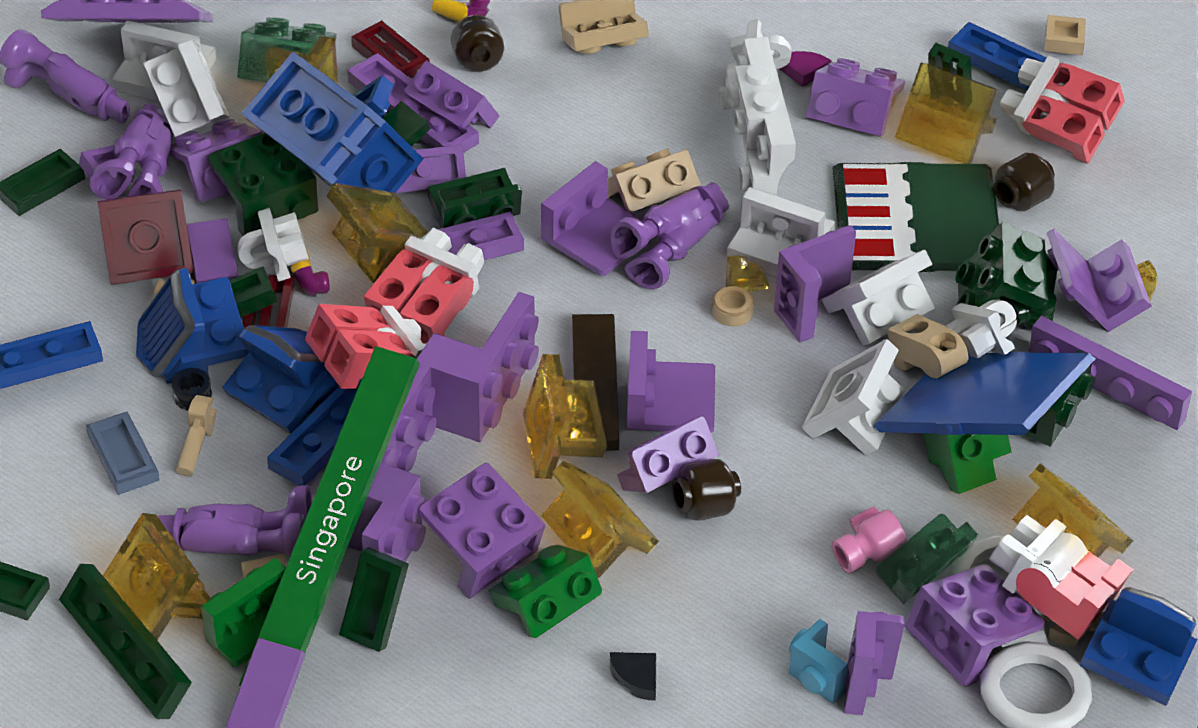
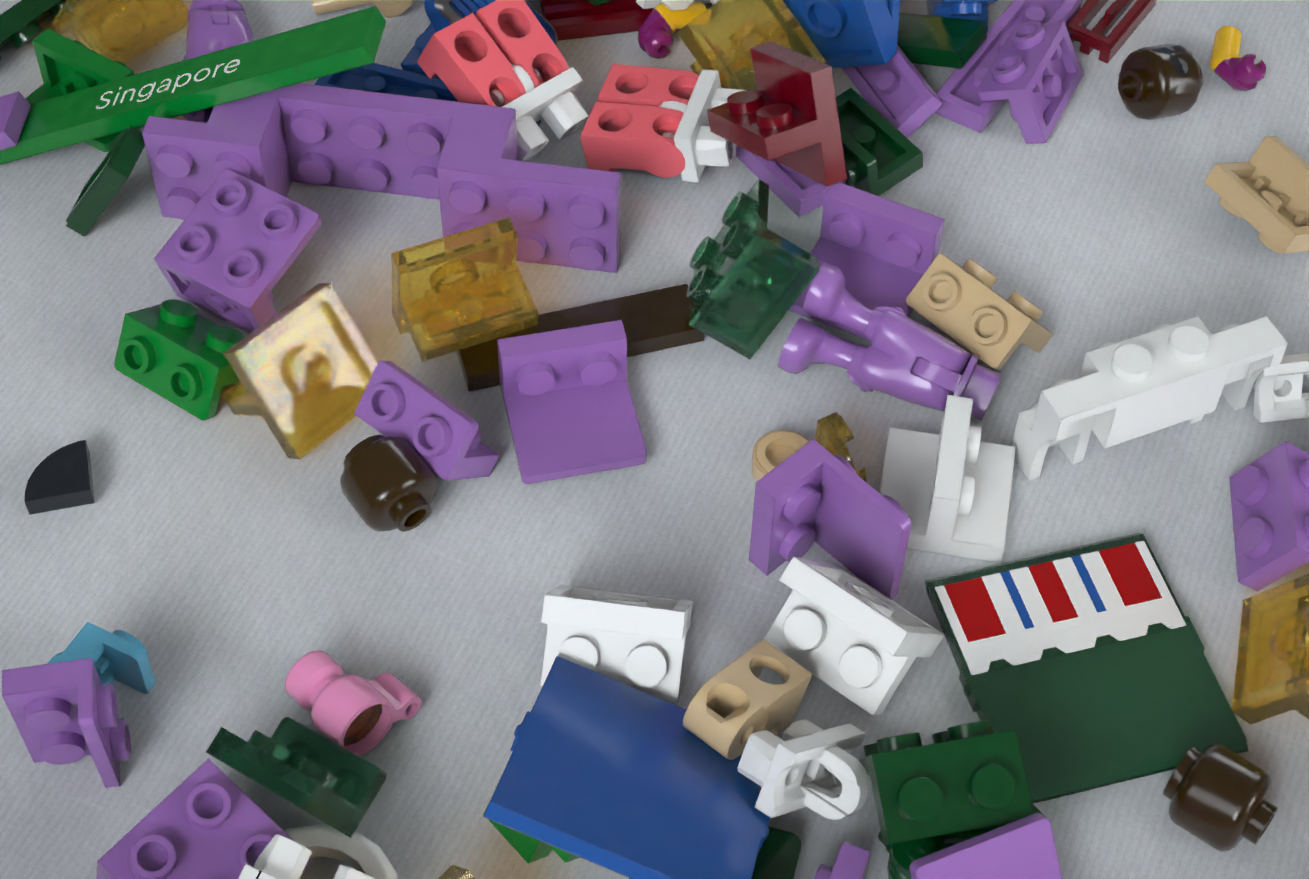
camera: 75 degrees right, 5 degrees up
(491, 198) = (788, 115): none -> dark red bracket
(589, 270) = (746, 276): none -> clear green bracket

